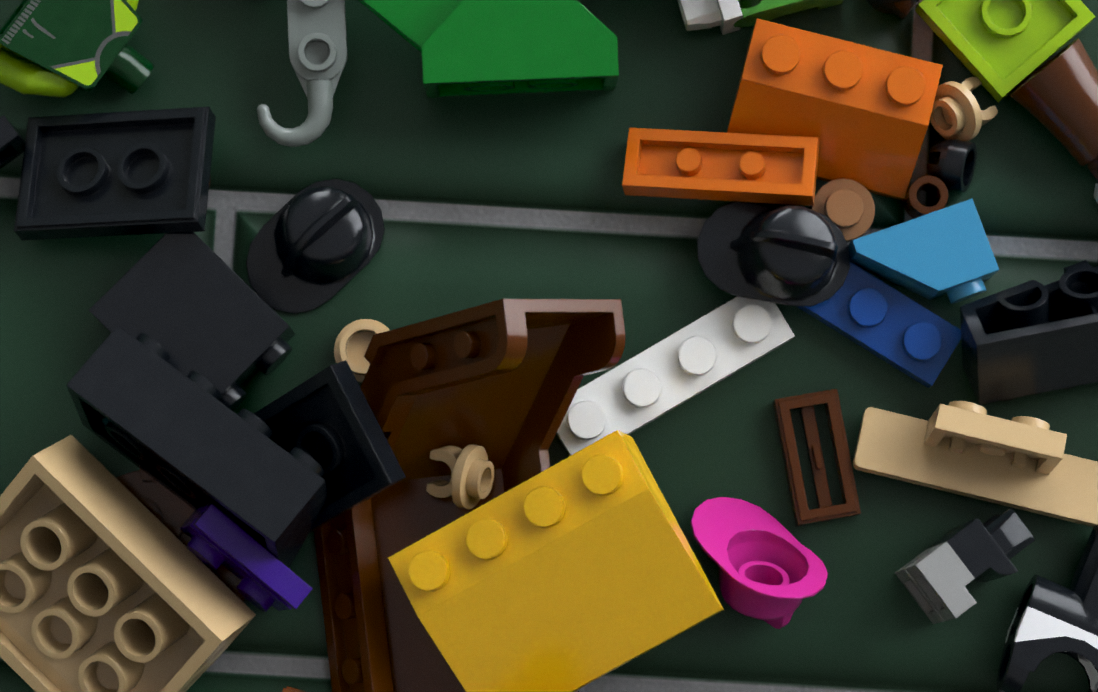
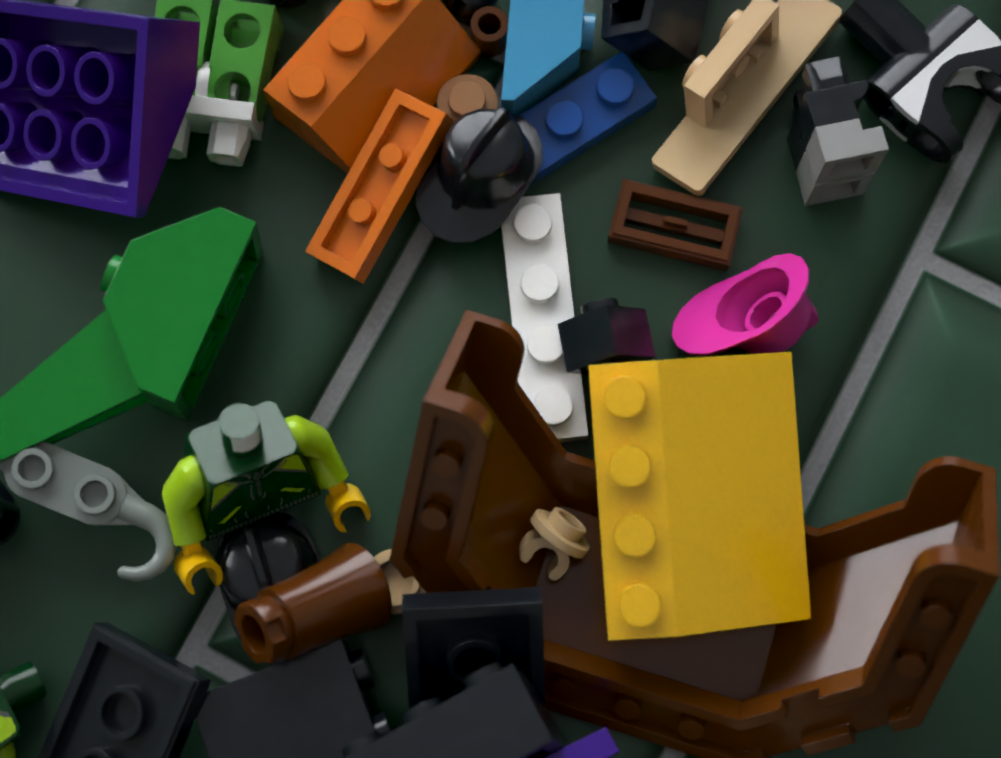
camera: 60 degrees left, 5 degrees down
(307, 291) = (316, 606): none -> reddish brown plant
(400, 175) = (246, 471): none -> torso
(670, 439) = (605, 336): none -> black plate

